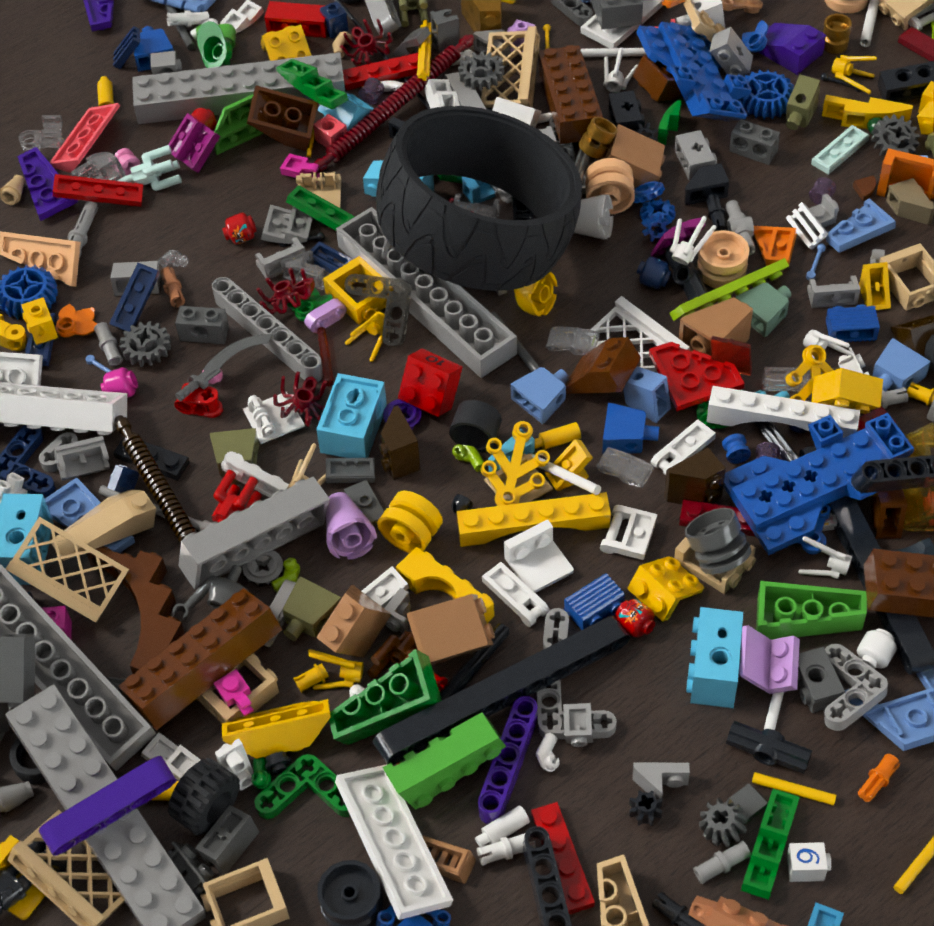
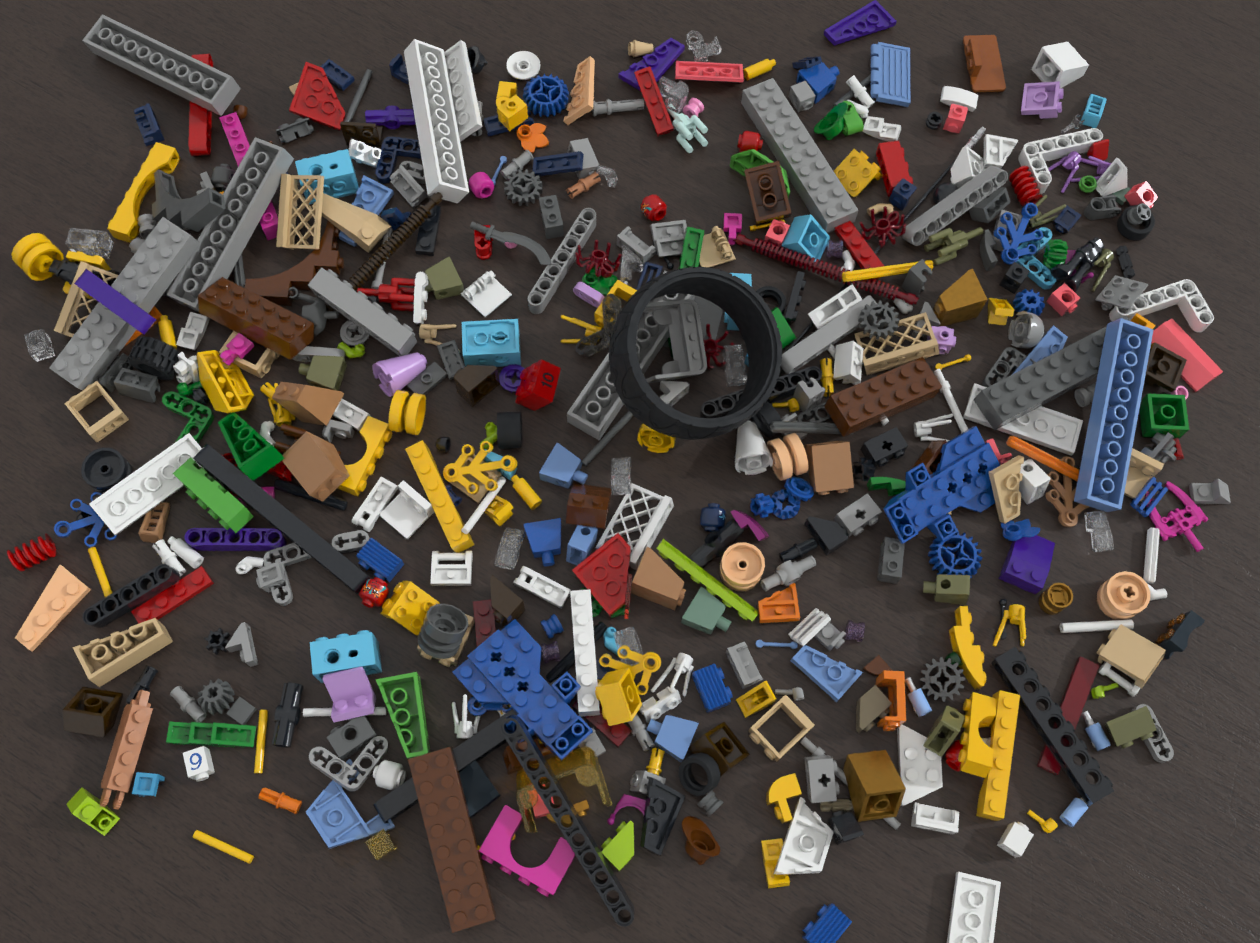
camera: 65 degrees right, 15 degrees up
(193, 142) = (725, 144): magenta slope -> none
(302, 399) = (502, 306): dark red animal -> none
(307, 80) = (806, 201): green slope -> none
(325, 356) = (552, 309): clear red bar -> none
(413, 40) = (897, 259): flat silver slope -> none
(598, 137) = (830, 430): pearl gold wheel -> none
(685, 251) = (724, 532): white plant -> none
(731, 52) = (985, 513): light grey brick -> none
(840, 149) = (916, 635): light aqua tile -> none

